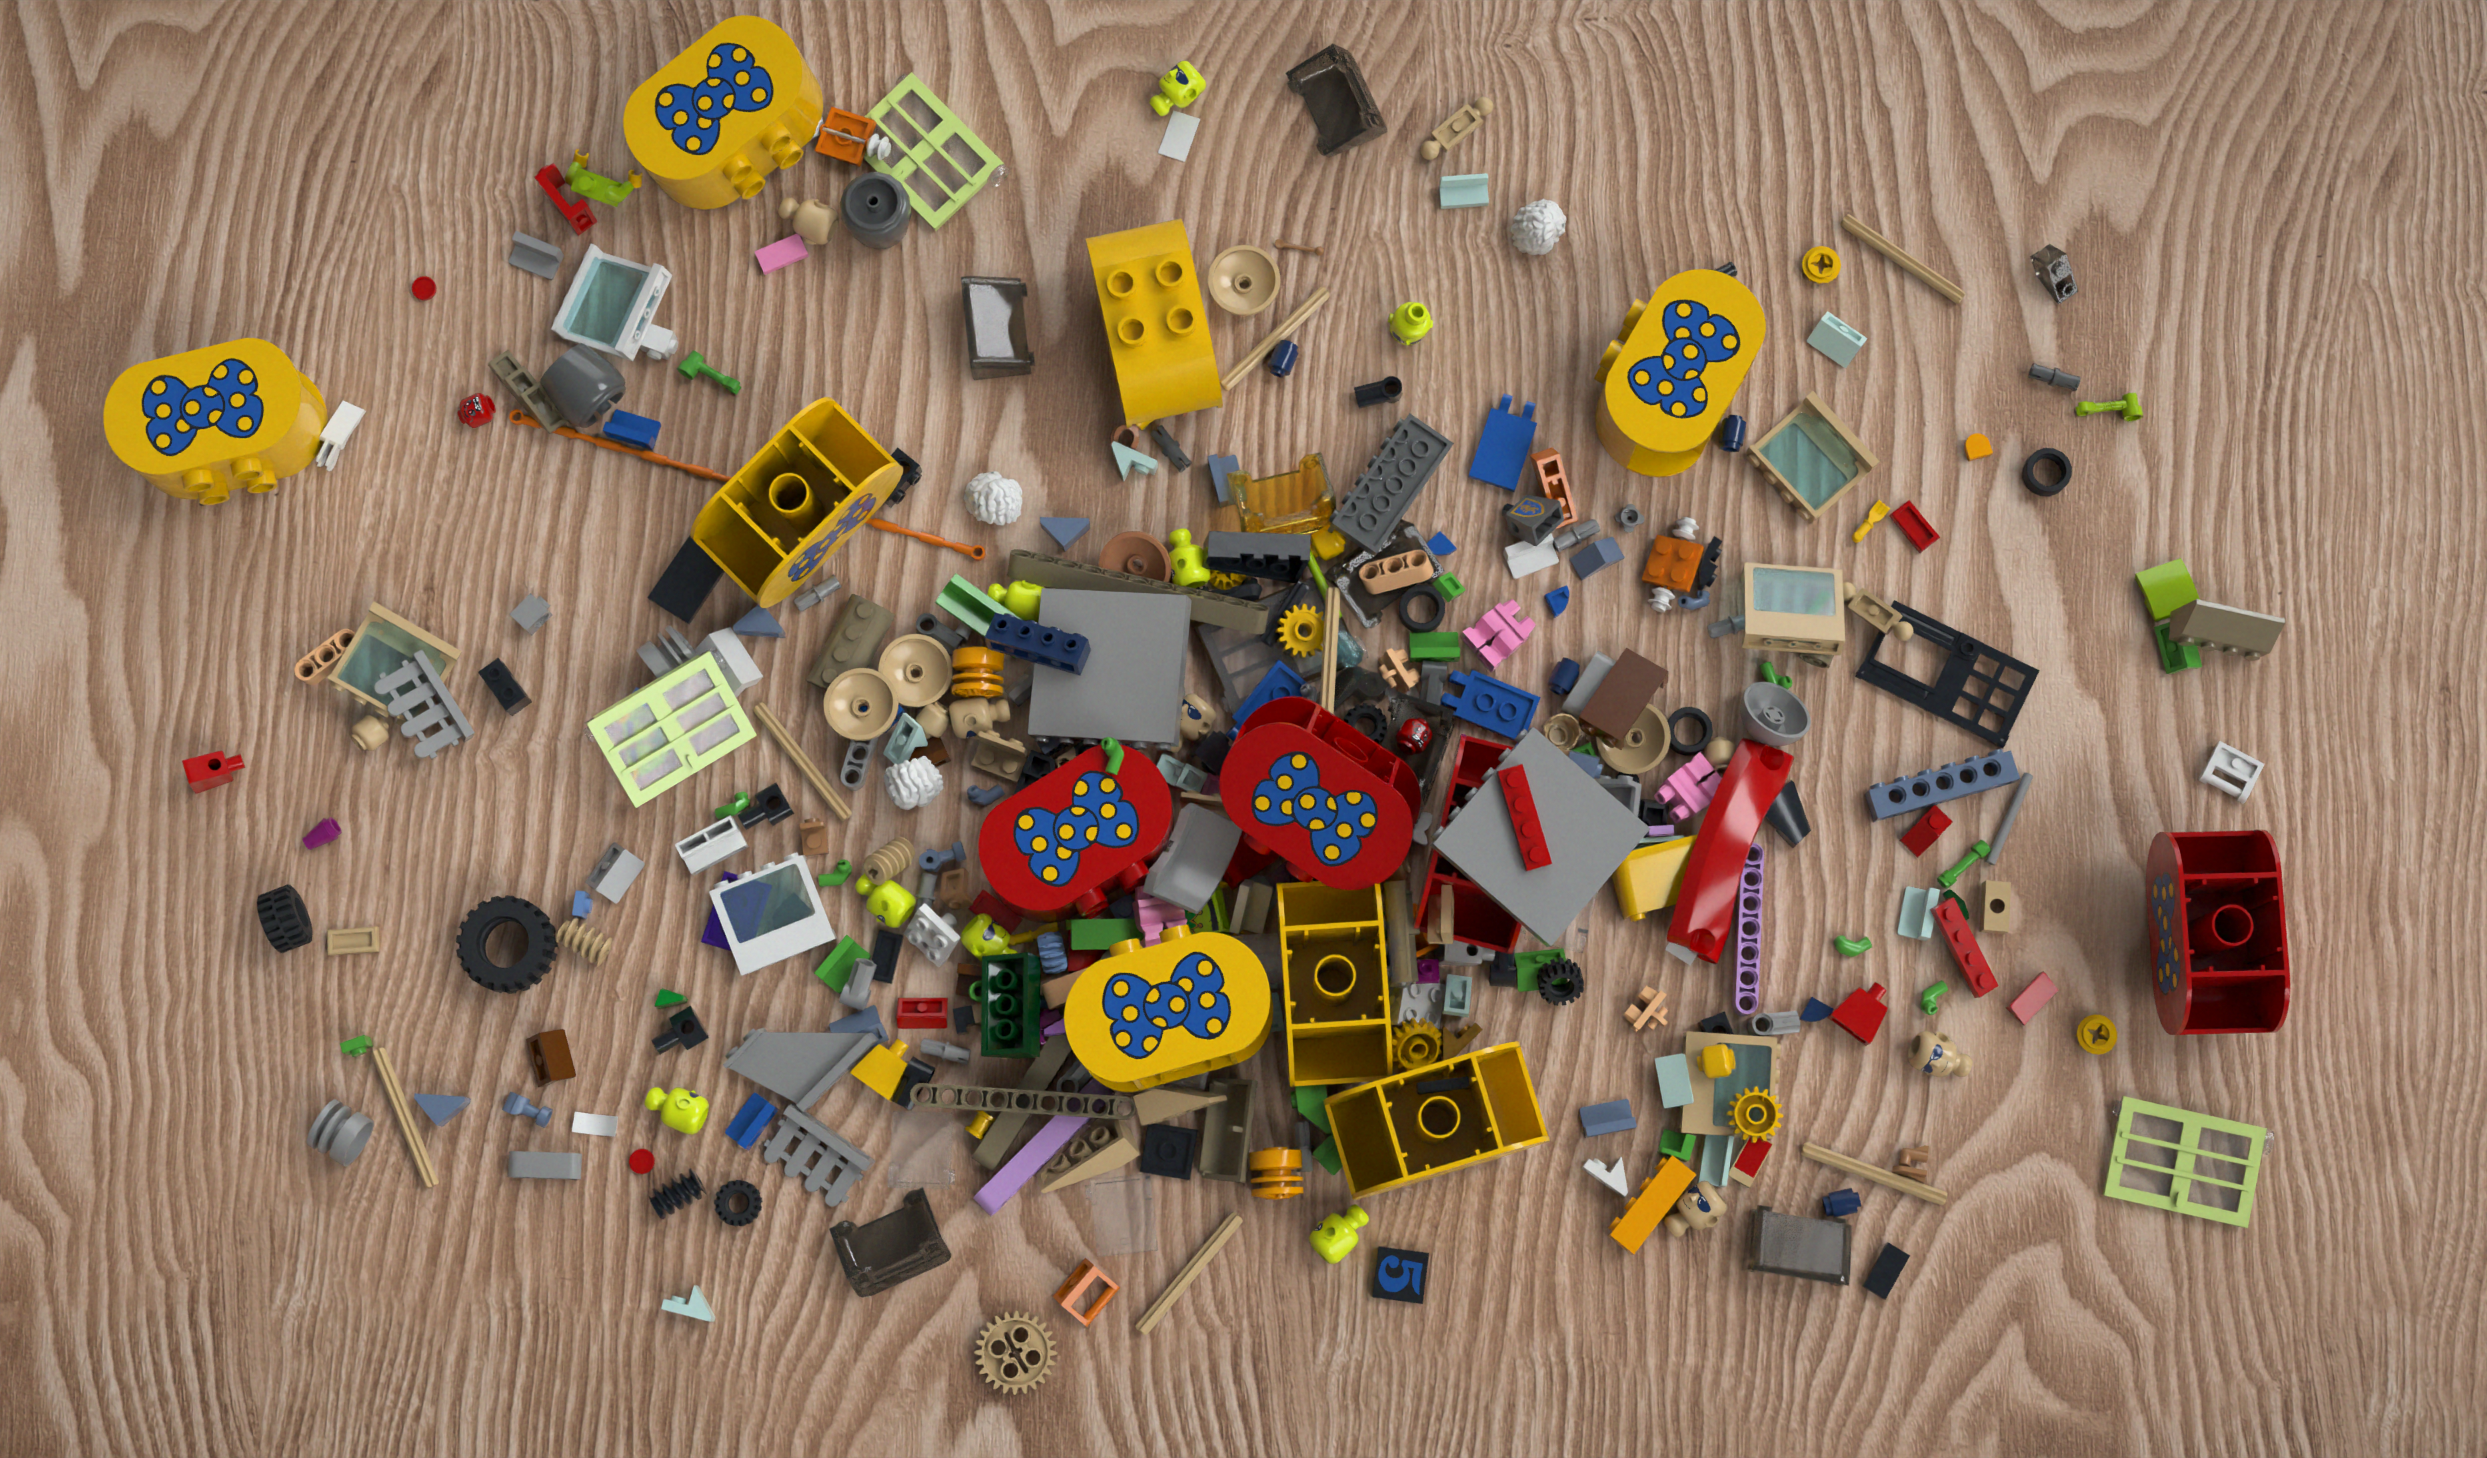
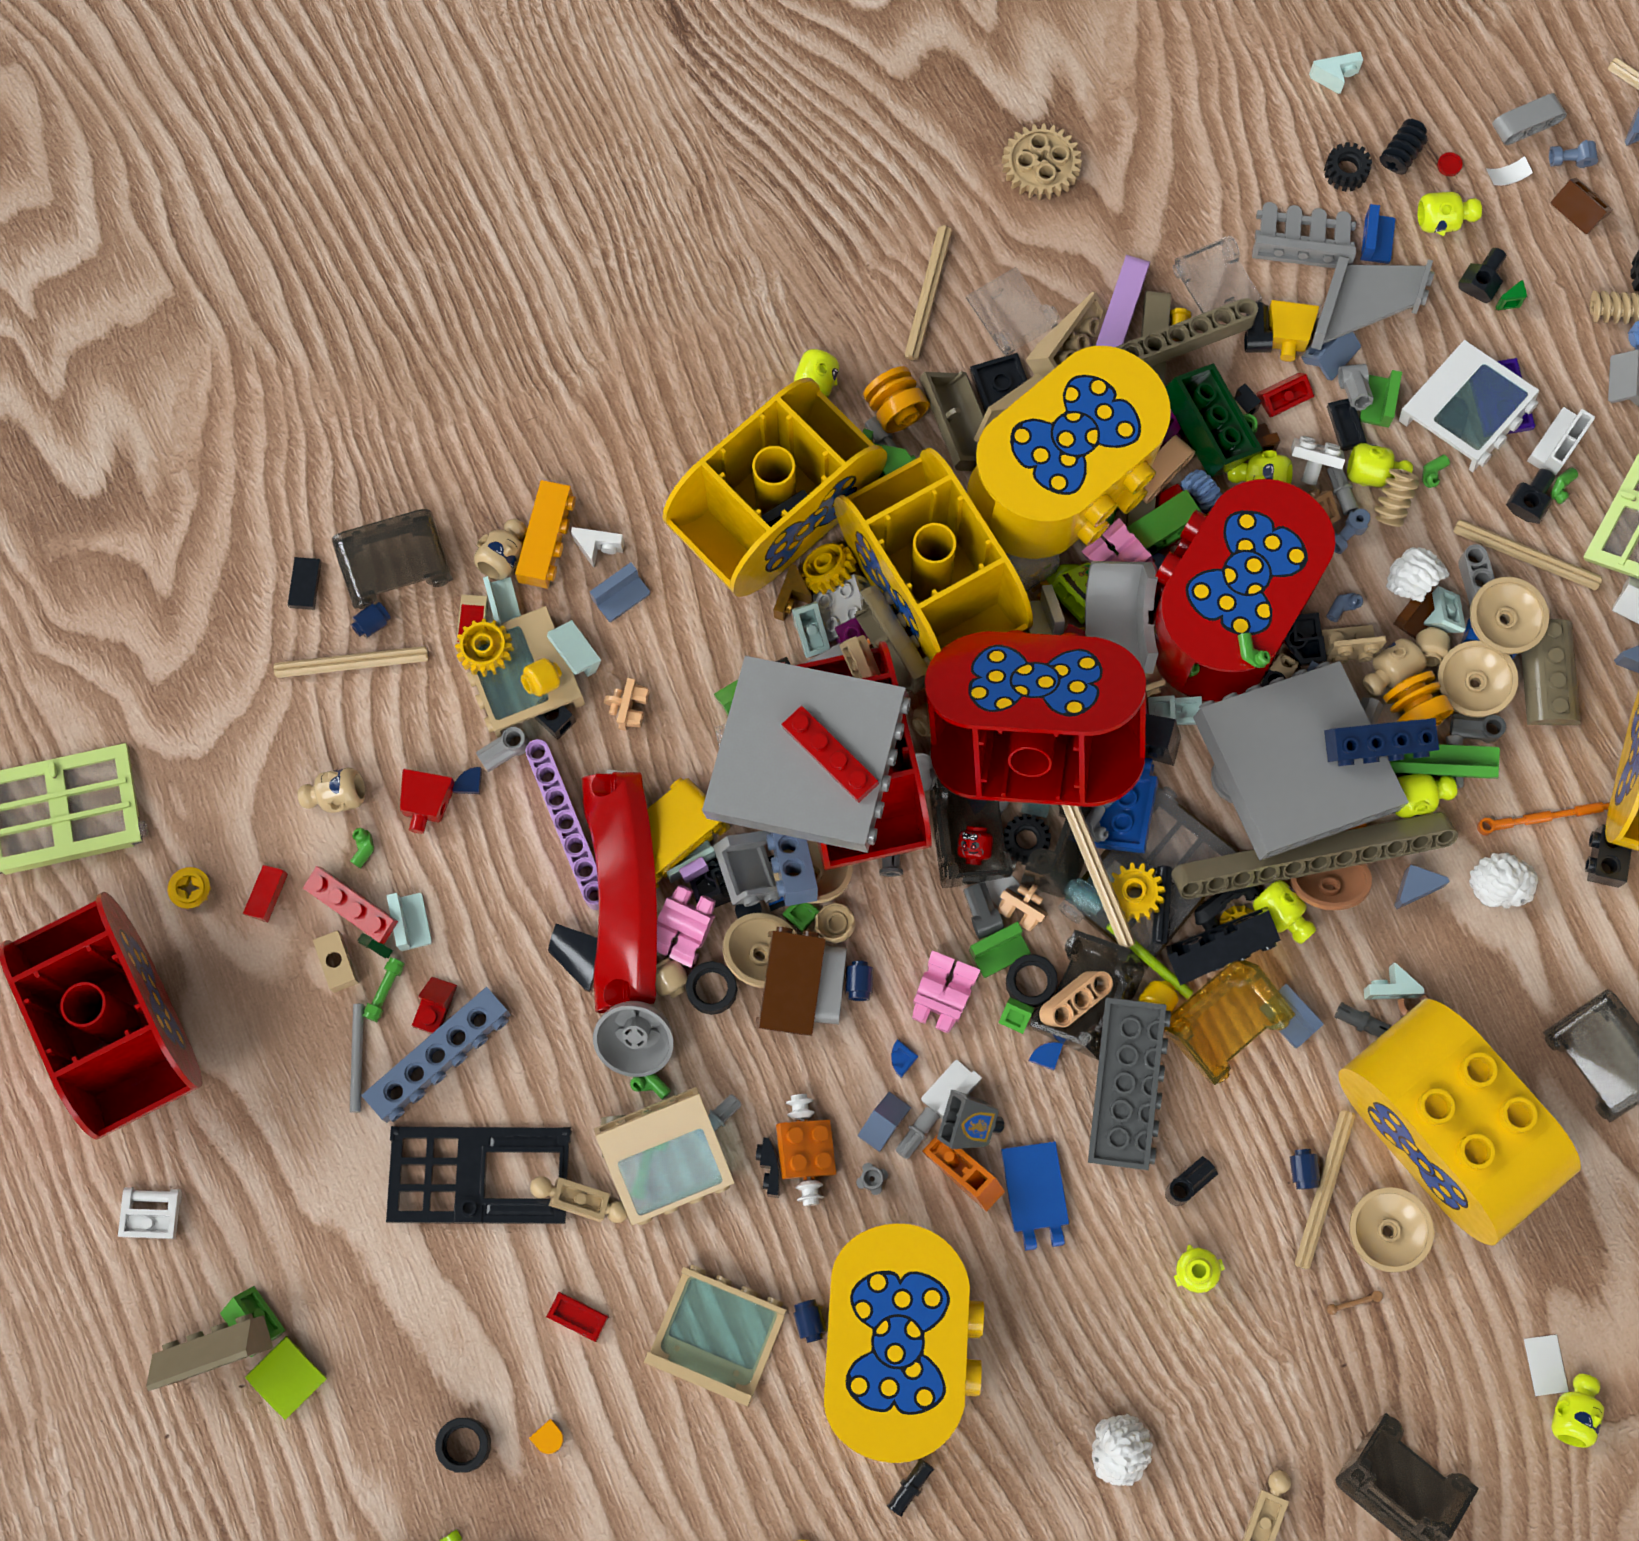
camera: 155 degrees right, 5 degrees down
(814, 837) = (1473, 493): medium nougat bracket -> none
(817, 593) = (1611, 712): light grey axle -> none
(891, 1246) = (1200, 191): clear smoke windscreen -> none
(945, 1051) = (1246, 369): light grey axle -> none
(1076, 1285) = (1019, 240): orange tile -> none
(1195, 719) = (1192, 762): tan piece -> none
(1400, 1275) = (742, 377): tile -> none
(1463, 191) = (1218, 1451): light aqua panel -> none
(1491, 704) = (914, 921): blue tile -> none
(1563, 992) = (719, 686): black tyre -> none
(1676, 1144) = (547, 595): bright green panel -> none
(1695, 603) = (765, 1121): sand blue arm -> none
(1836, 339) = (747, 1485): light aqua panel -> none
(1851, 948) = (458, 856): bright green arm -> none
(1874, 516) = (623, 1308): yellow piece -> none
(1906, 1155) = (327, 693): medium nougat piece -> none

